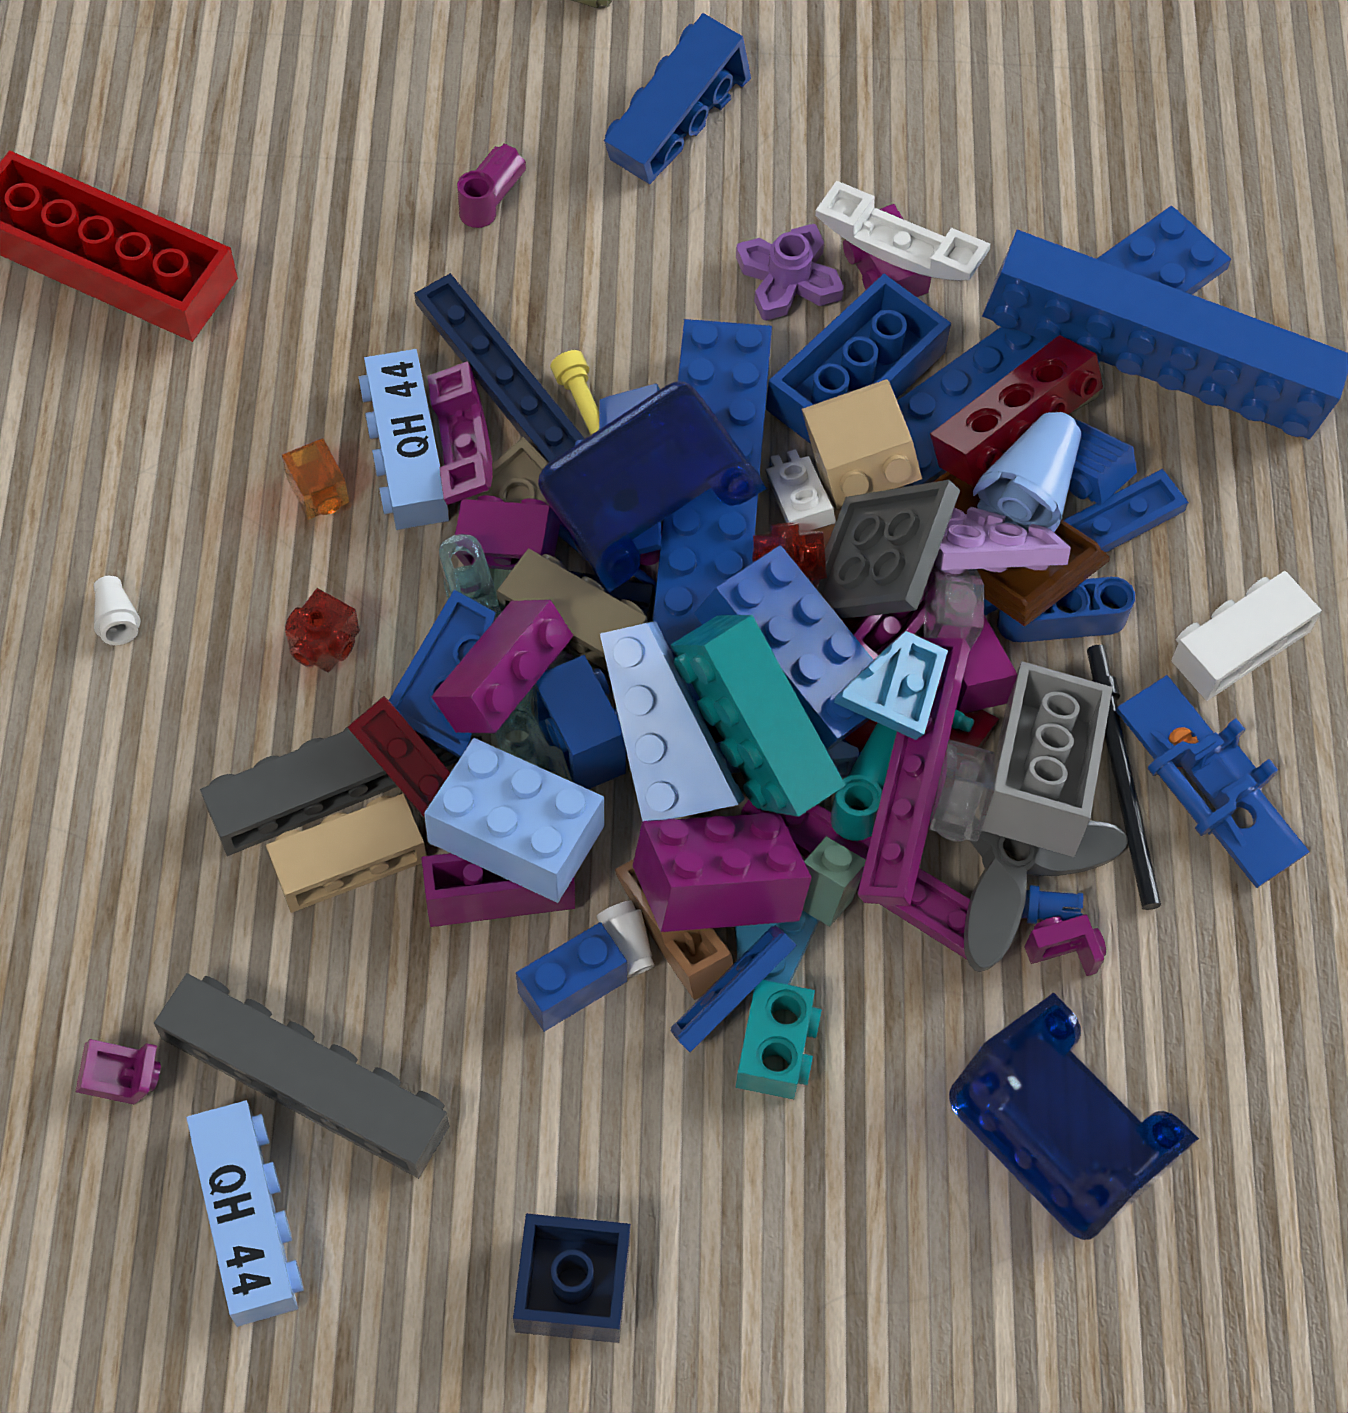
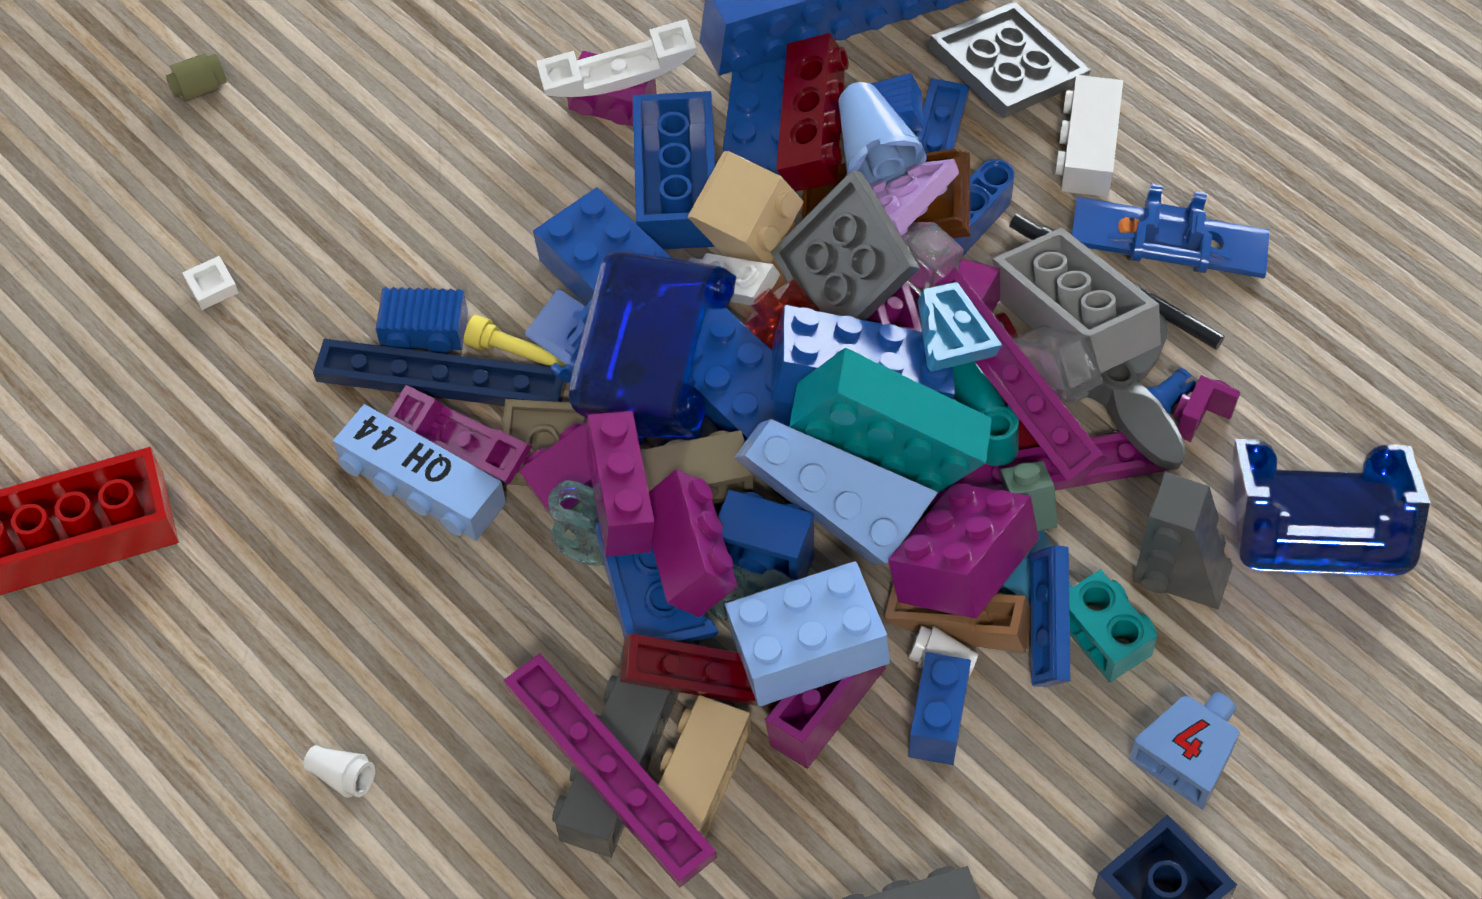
camera: 40 degrees left, 5 degrees down
(271, 786) = (610, 770): none -> magenta plate
(315, 479) = (386, 553): clear orange brick -> none
(321, 631) = (510, 641): clear red brick -> none
(421, 159) = (210, 282): none -> white plate
(487, 185) = (281, 261): magenta piece -> none
(494, 571) = (619, 484): none -> magenta brick
(536, 320) = (422, 319): none -> blue brick
(678, 98) = (355, 98): blue wedge -> none
(730, 1195) = (1189, 746): none -> medium blue torso
(789, 269) = (555, 150): medium lavender plant -> none
(895, 1033) = (1183, 545): none -> dark grey wedge
(1247, 508) = (1008, 59): none -> dark grey plate

